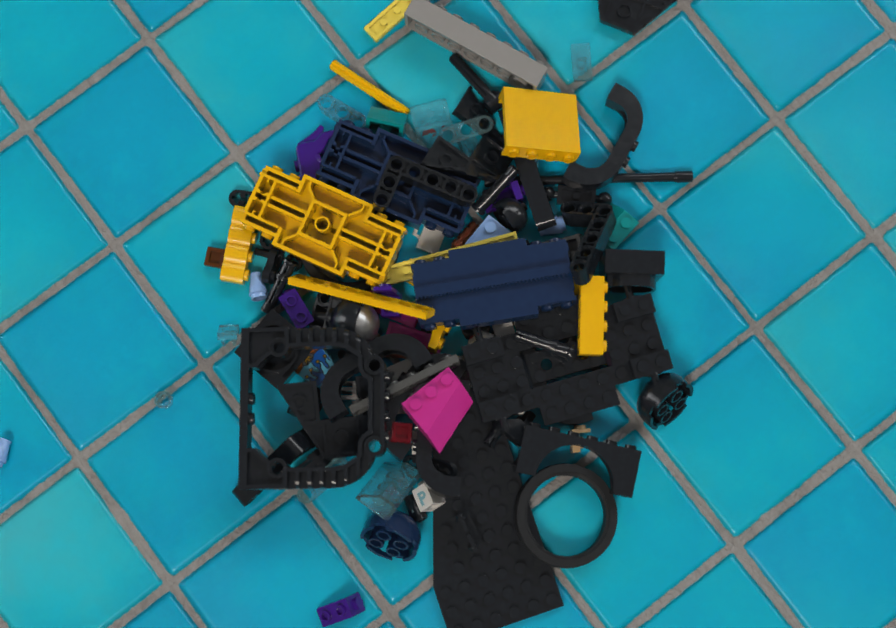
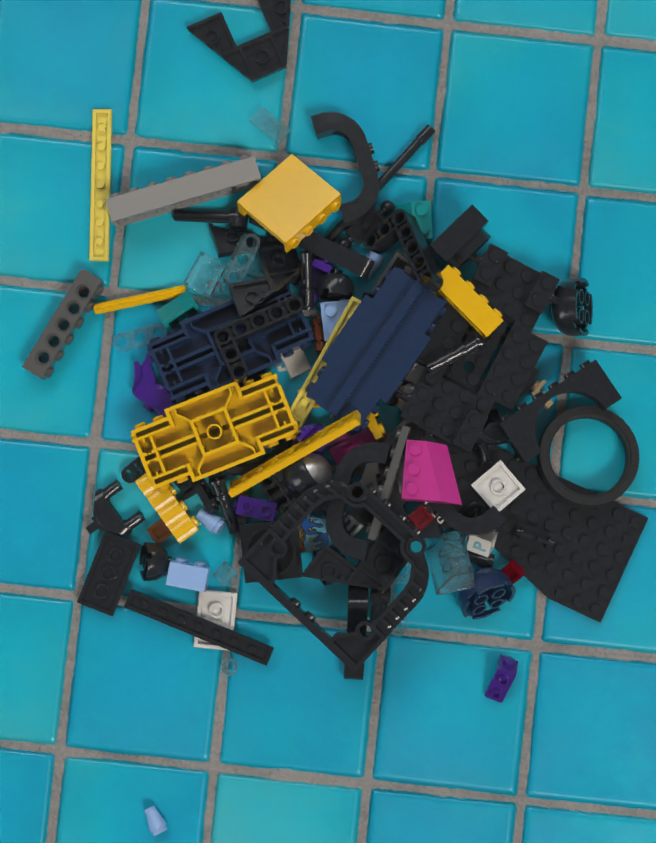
camera: 50 degrees left, 5 degrees up
(151, 250) = (109, 573): none -> black plate
(172, 351) = (199, 627): none -> black tile
(188, 358) = (218, 608): none -> white tile
(189, 273) = (154, 561): none -> black cylinder
(191, 211) = (106, 515): none -> black connector
(202, 307) = (188, 575): none -> light blue brick
(291, 47) = (53, 329): none -> dark grey brick
(428, 541) = (513, 571): none -> dark red plate
(479, 470) = (498, 486): none -> white plate

